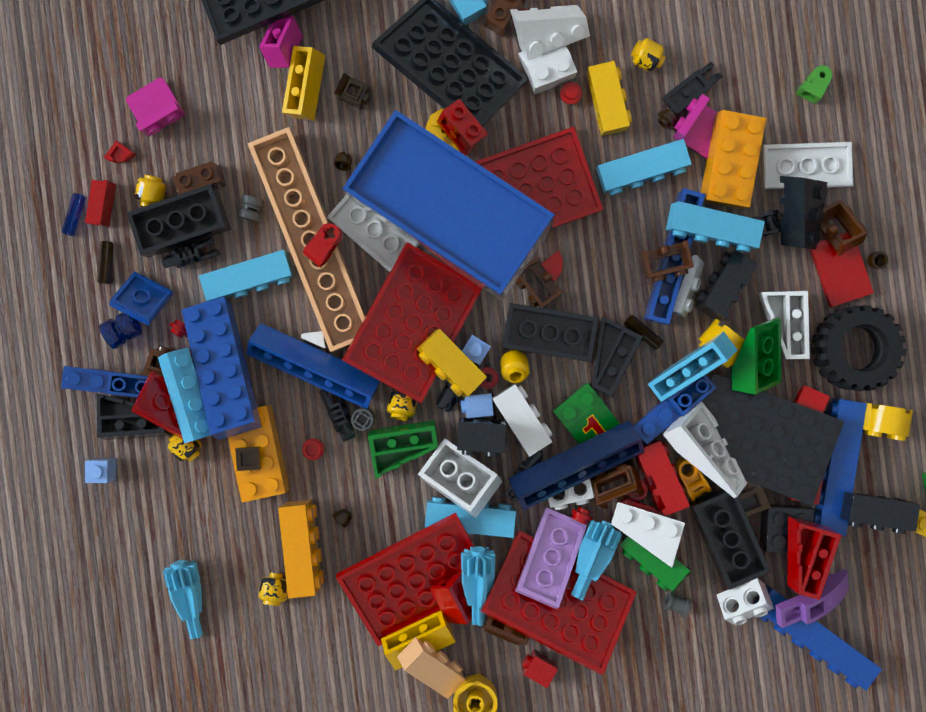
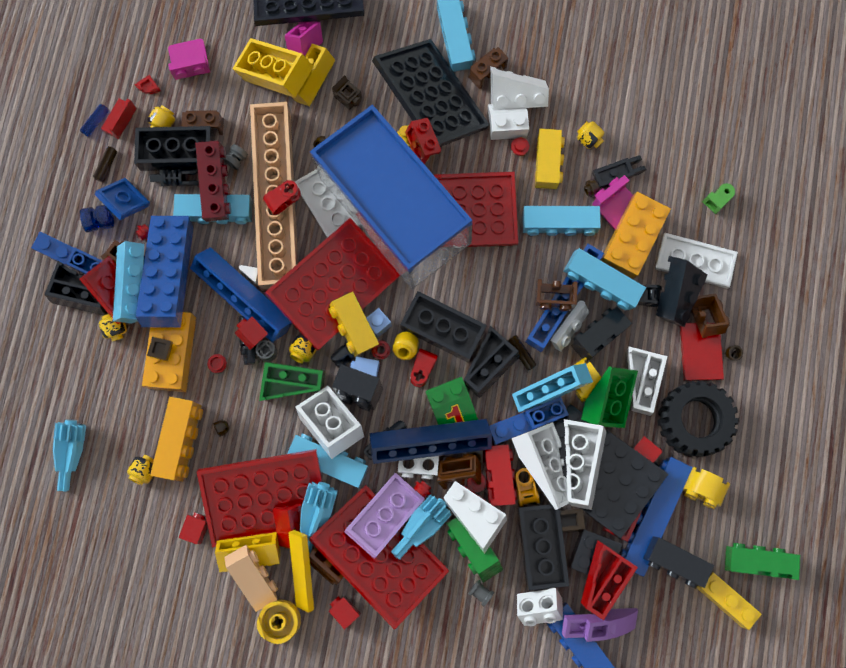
camera: 25 degrees right, 10 degrees down
(100, 470) = (37, 325): light blue brick -> none
(237, 249) = (212, 181): none -> dark red brick
(258, 90) = (273, 67): none -> yellow brick
(340, 407) = (250, 332): none -> red brick
(351, 633) = (194, 528): none -> red brick
(482, 643) = (301, 570): none -> yellow tile
(523, 419) = (398, 389): white brick -> none
(540, 379) = (423, 365): none -> red piece
(546, 280) = (447, 269): reddish brown window -> none
(553, 265) = (464, 276): red tile -> none
(749, 437) = (583, 460): none -> white wedge

